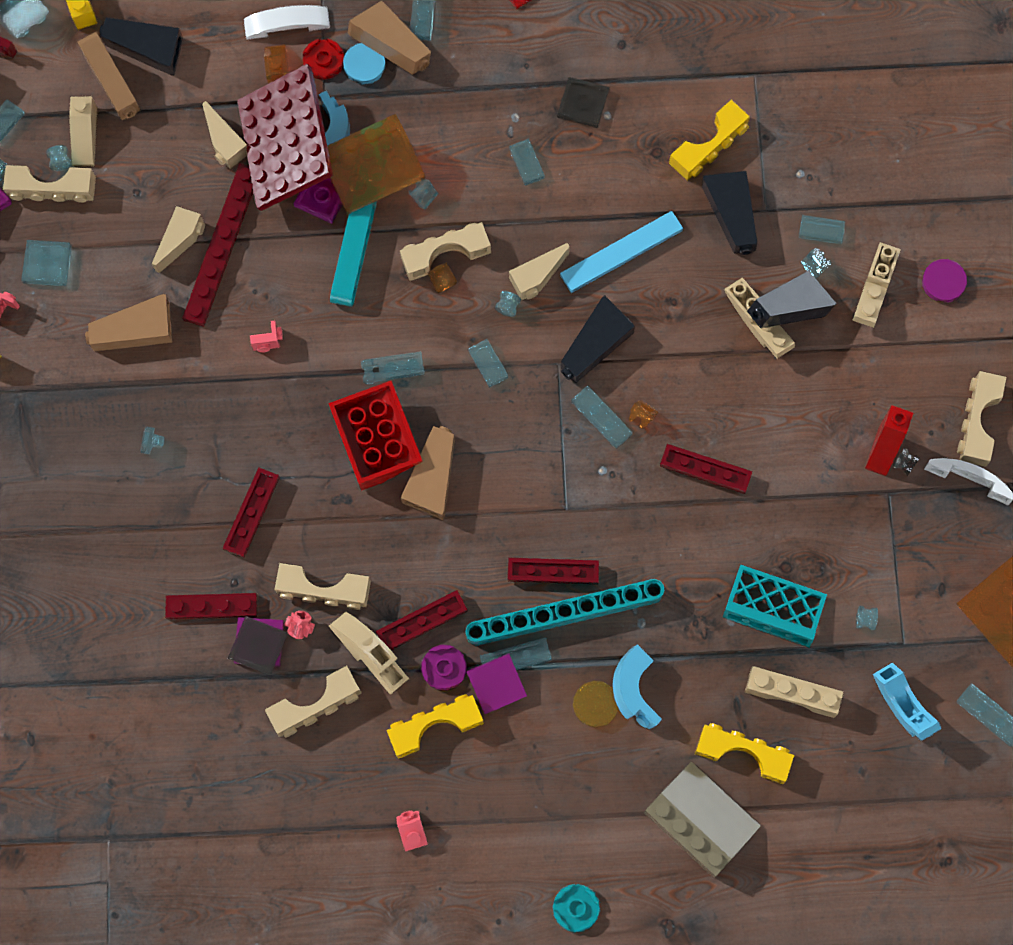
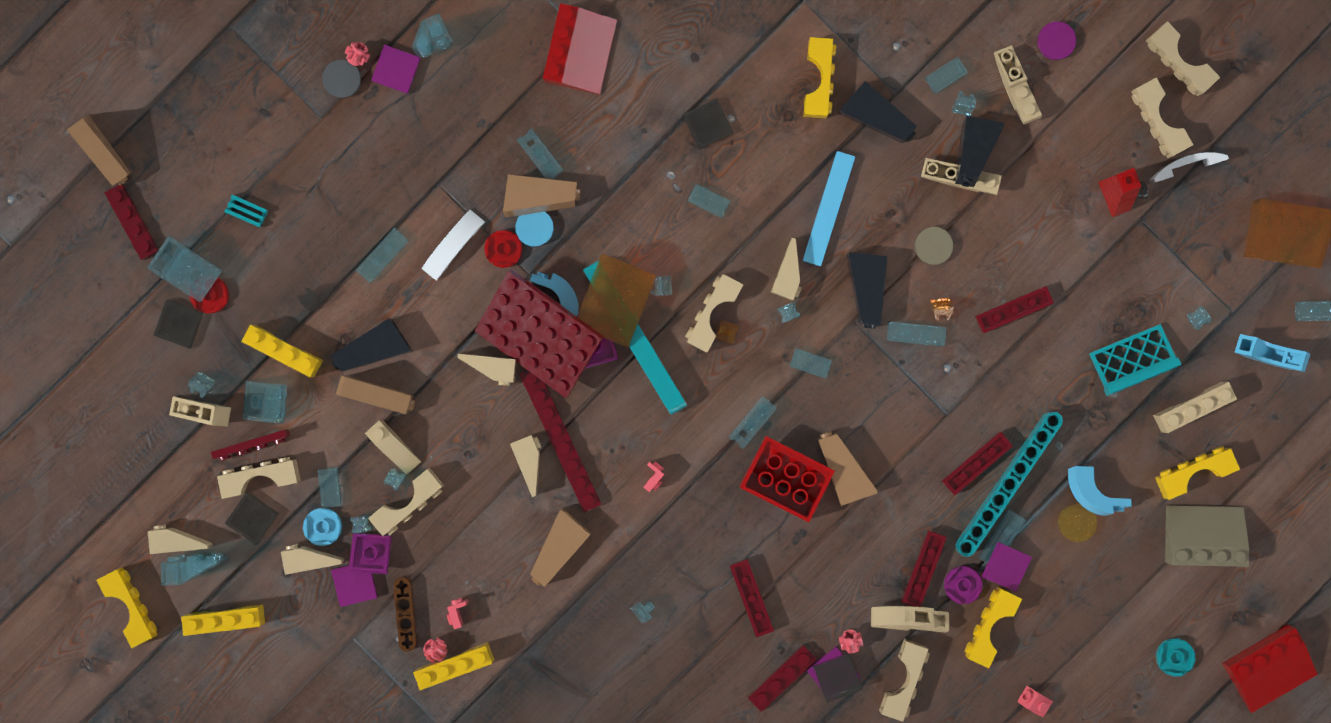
camera: 45 degrees left, 15 degrees up
(46, 263) = (456, 555): clear light blue plate -> none
(275, 62) = (476, 281): clear orange slope -> none
(351, 590) = (862, 591): tan arch -> none
(684, 357) = (933, 245): none -> dark tan tile

